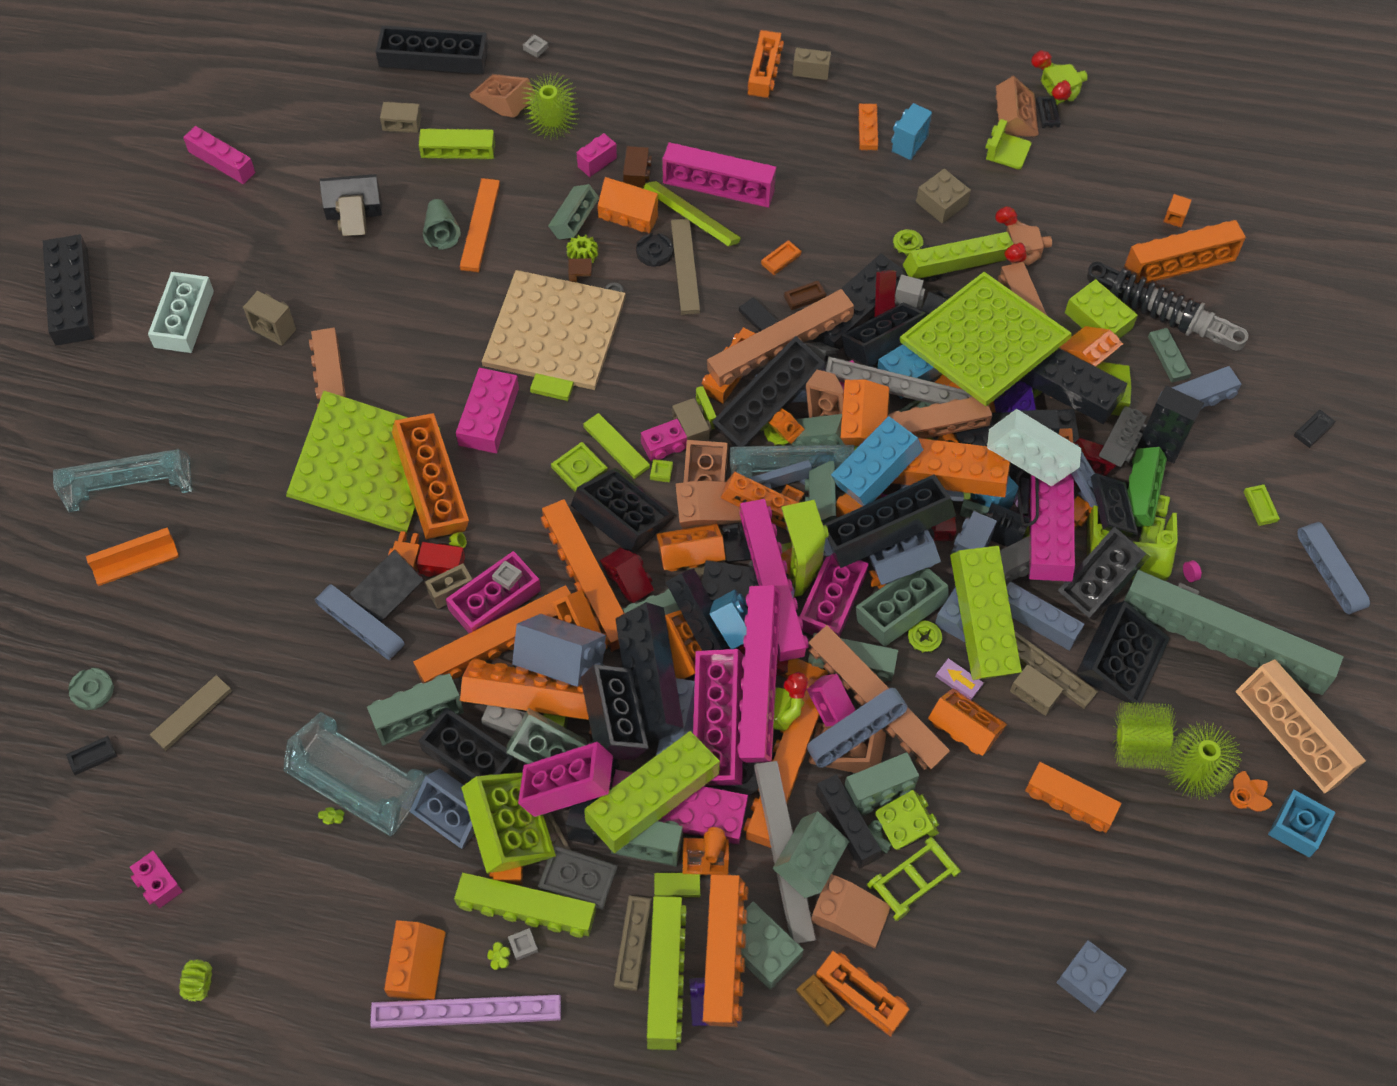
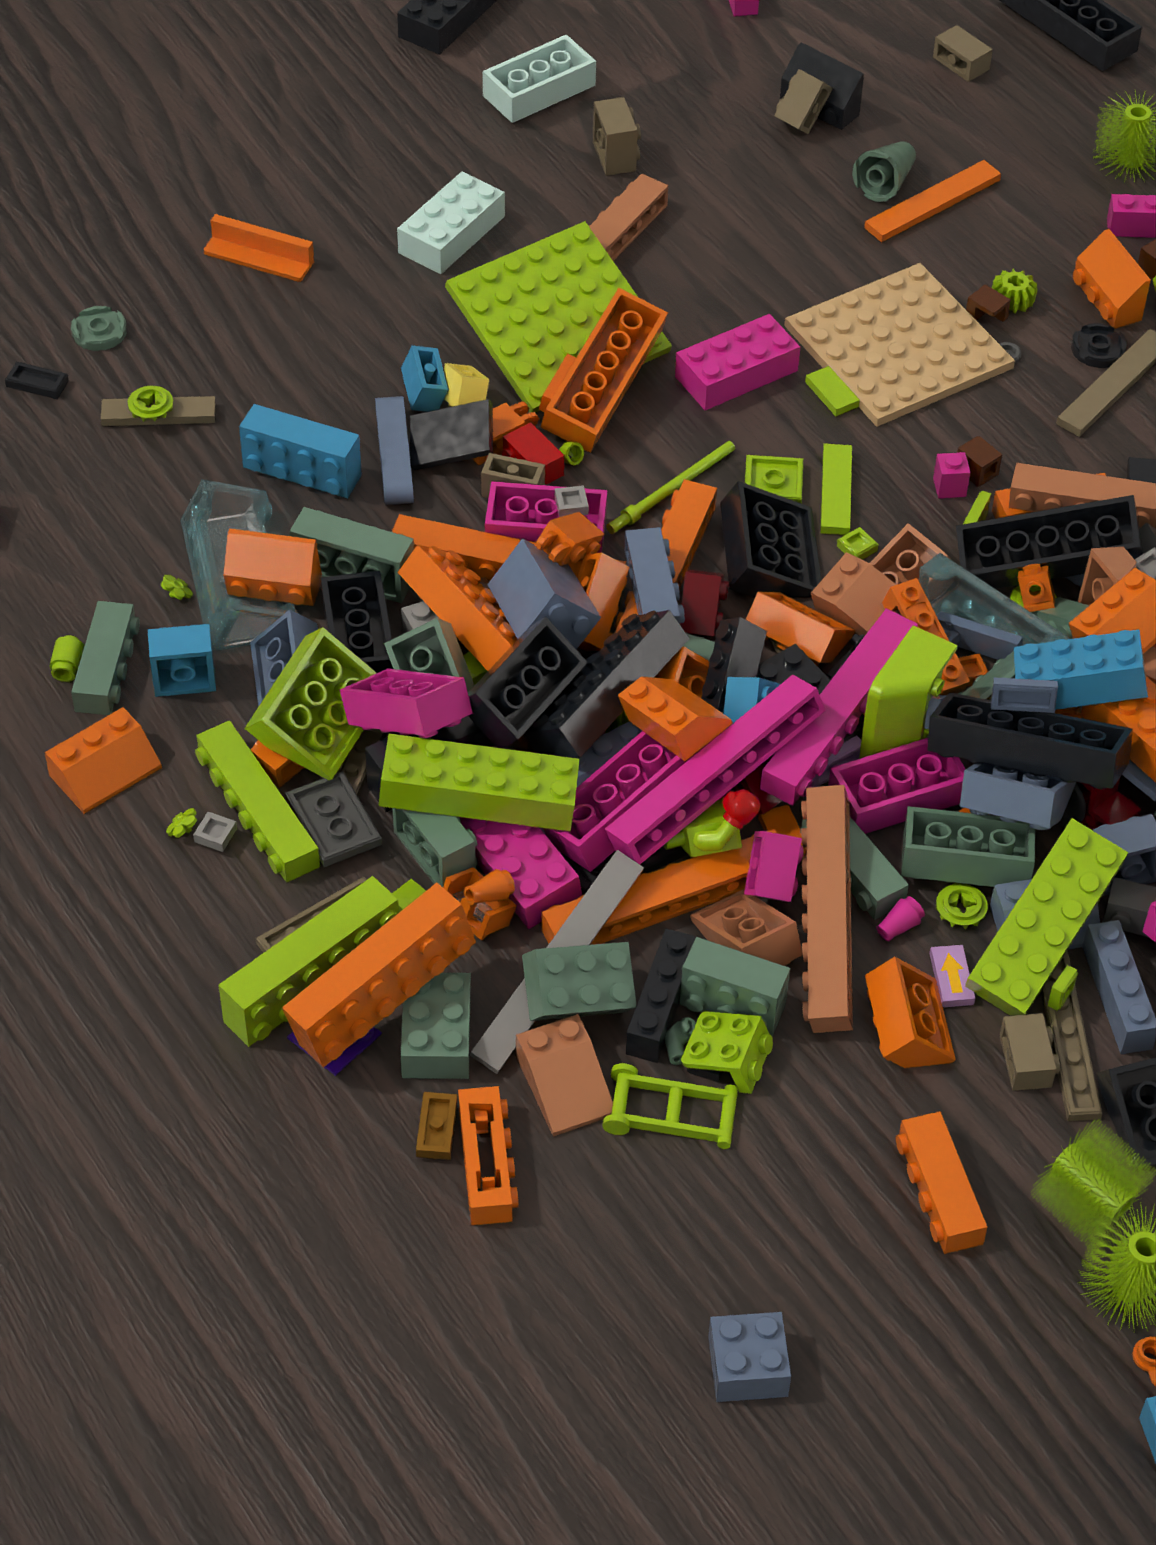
camera: 45 degrees right, 10 degrees down
(75, 482) = (283, 150): clear light blue windscreen -> none
(176, 711) = (144, 397): none -> lime gear
(231, 448) = (451, 222): none -> light aqua brick
(312, 670) = (300, 450): none -> dark azure brick
(320, 917) = (66, 658): none -> lime brick
(330, 563) = (424, 378): none -> dark azure brick
(342, 897) = (105, 658): none -> sand green brick
(362, 550) = (464, 384): none -> light yellow brick
(383, 759) = (272, 567): none -> orange slope
(393, 859) = (181, 660): none -> dark azure brick
(412, 505) = (556, 381): none -> orange tile
(457, 143) = (994, 112): lime brick -> none
(465, 1011) = (101, 845): lavender tile -> none
(504, 94) = (1091, 93): nougat slope -> none
(529, 550) = (633, 512): none -> lime bar
(535, 600) = (569, 538): none -> orange hinge
(573, 211) = (1044, 248): sand green brick -> none
(597, 586) = (652, 572): none -> sand blue brick
(664, 440) = (885, 513): dark pink brick -> none
(668, 389) = (951, 475): none -> dark pink brick
(671, 370) = (982, 459): none -> reddish brown panel
(692, 420) = (941, 517): dark tan brick -> none
(709, 661) = (672, 715): none -> orange slope
(857, 727) = (767, 908): sand blue beam -> none
(867, 499) = (1024, 695): none -> sand blue tile
(907, 670) = (902, 917): none -> dark pink cone
(1022, 641) = (1062, 988): none -> lime tile

